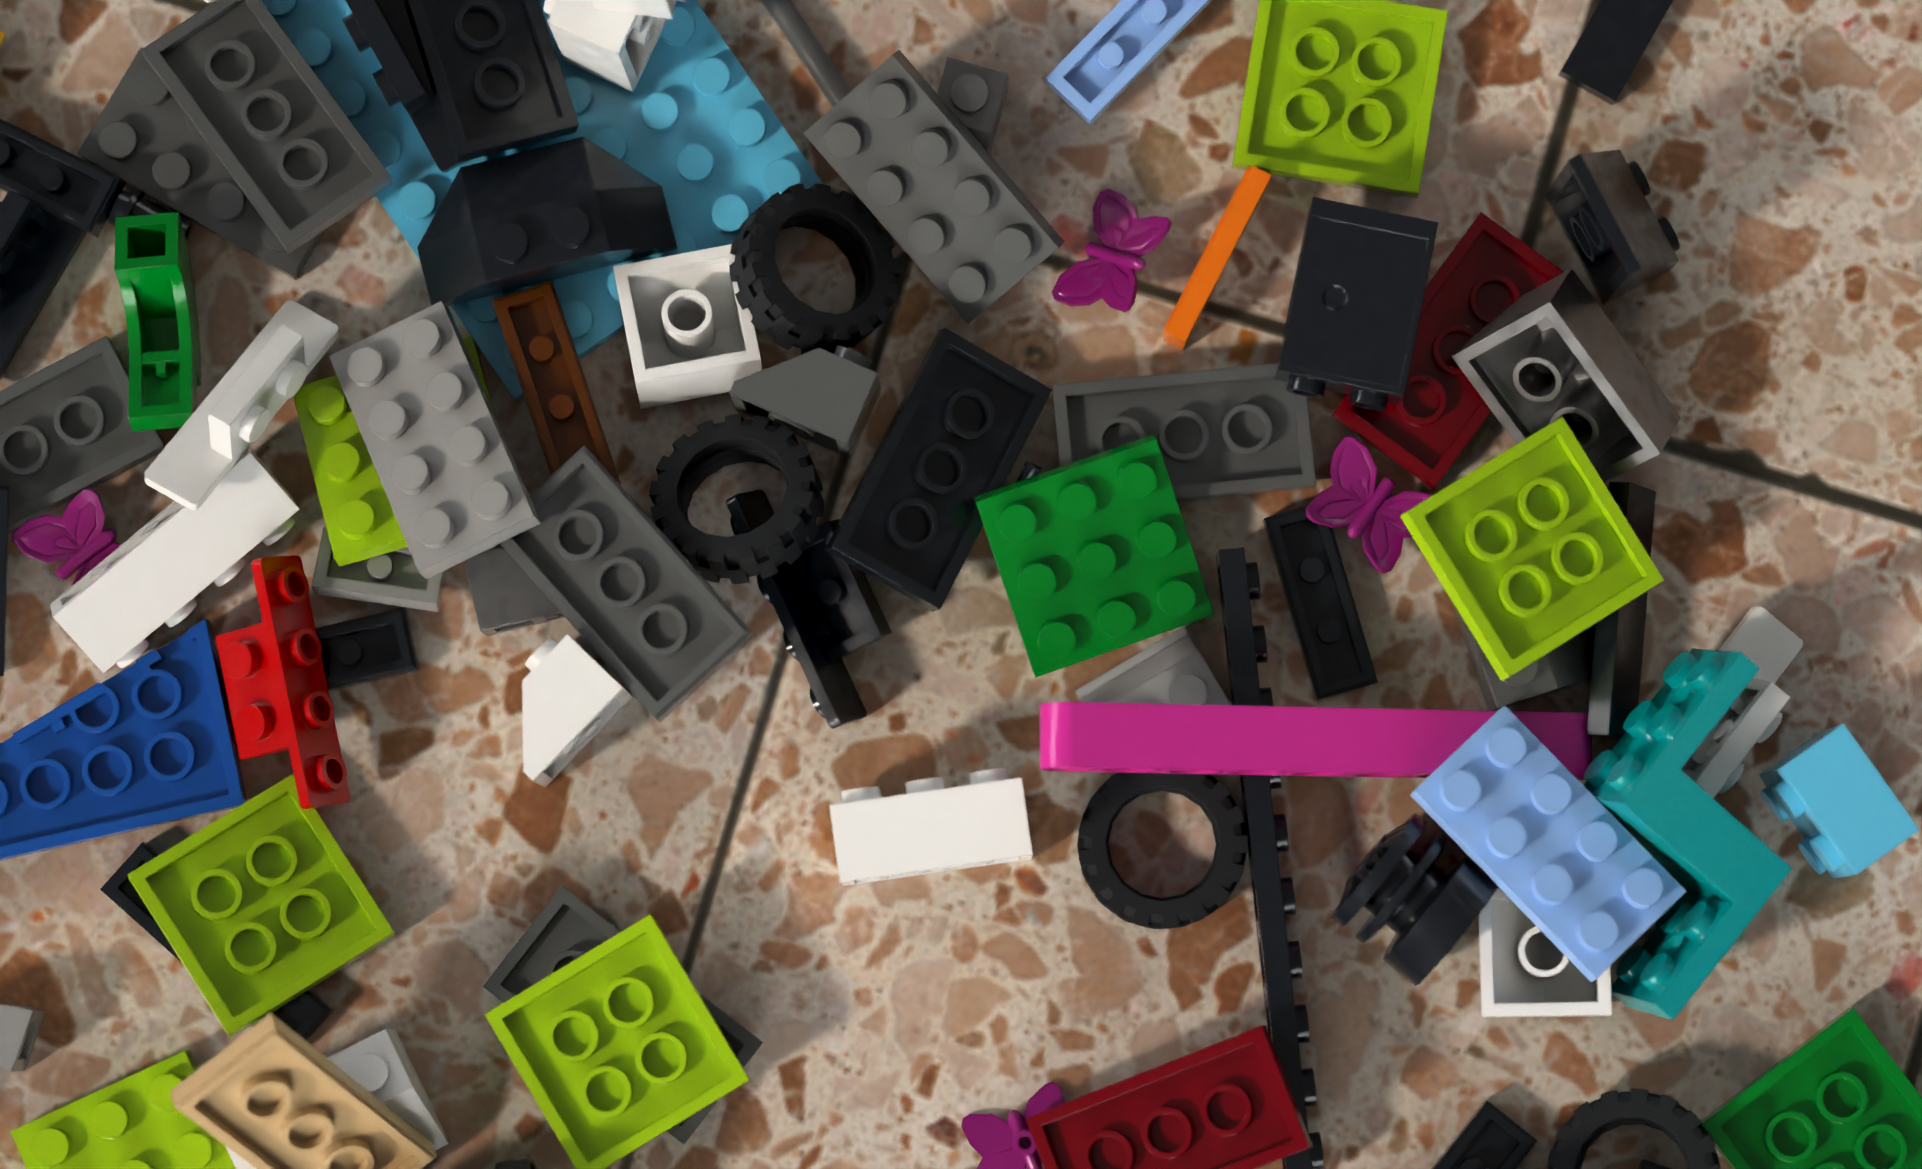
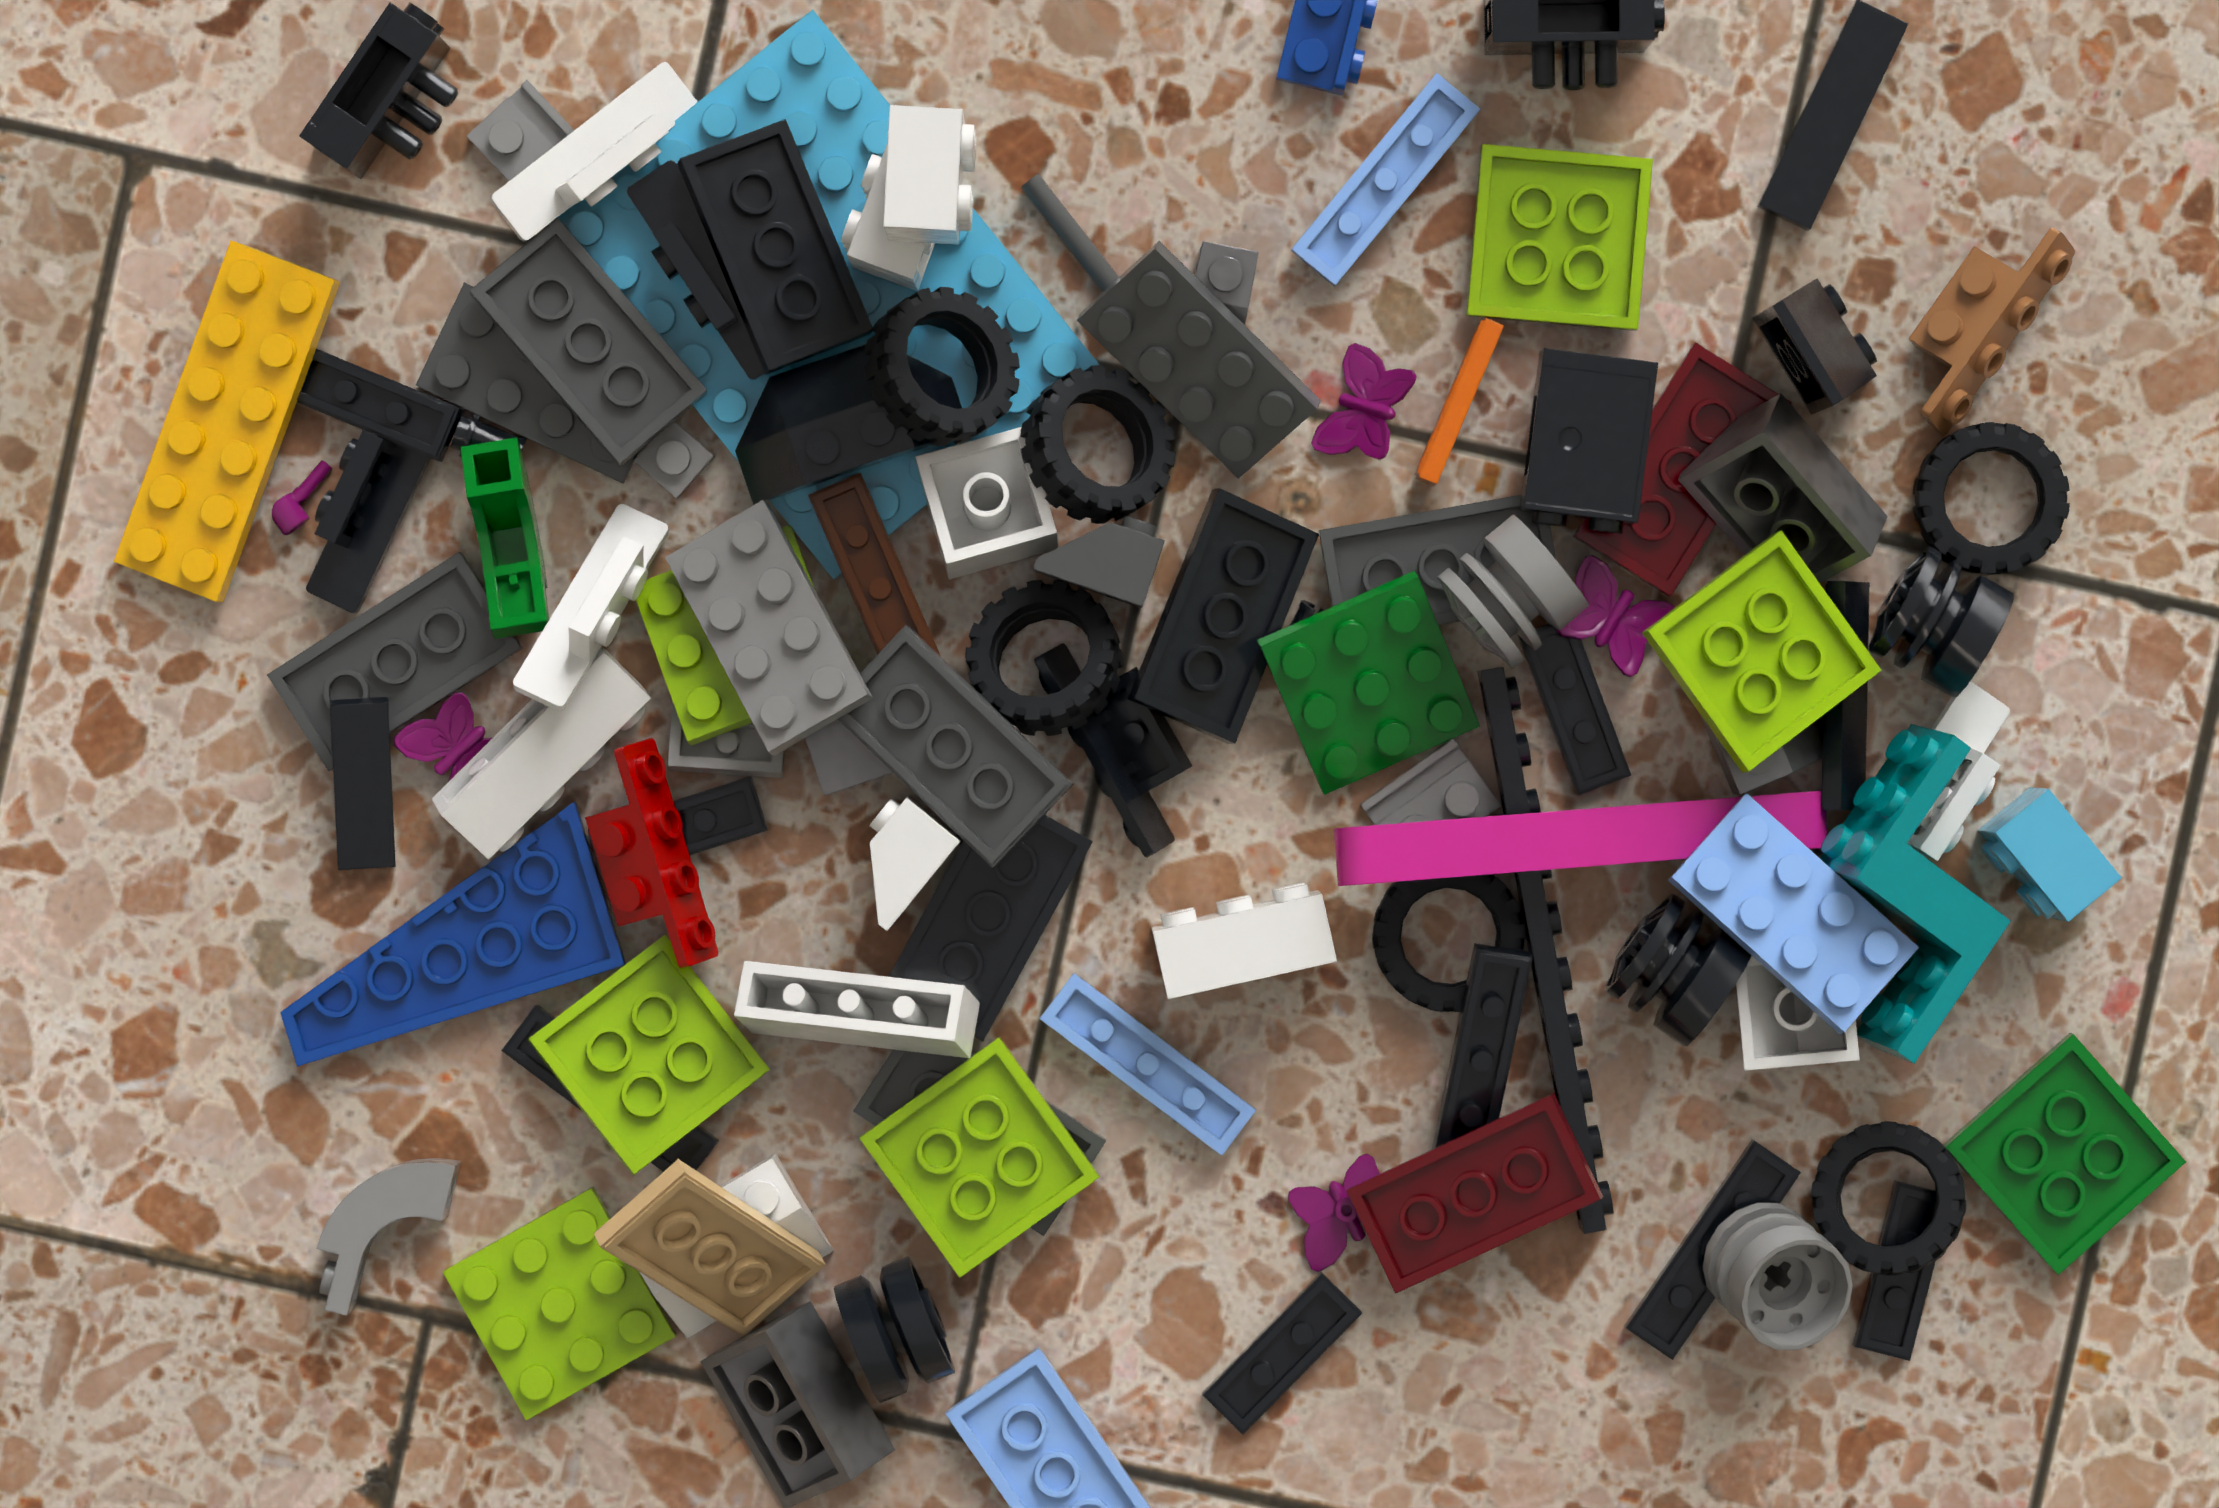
camera: 10 degrees left, 5 degrees up
(352, 255) = (674, 459): none -> light grey plate
(495, 870) = (857, 1009): none -> white brick
(616, 208) = (981, 338): none -> black tyre
(650, 791) = (991, 918): none -> black plate
(816, 960) = (1147, 1064): none -> light blue plate
(1192, 961) = (1483, 1041): none -> black tile
(1259, 461) = (1512, 591): none -> light grey wheel
(1733, 535) = (1940, 621): none -> black wheel
(1796, 213) = (1979, 320): none -> medium nougat bracket
(1837, 357) = (2050, 487): none -> black tyre

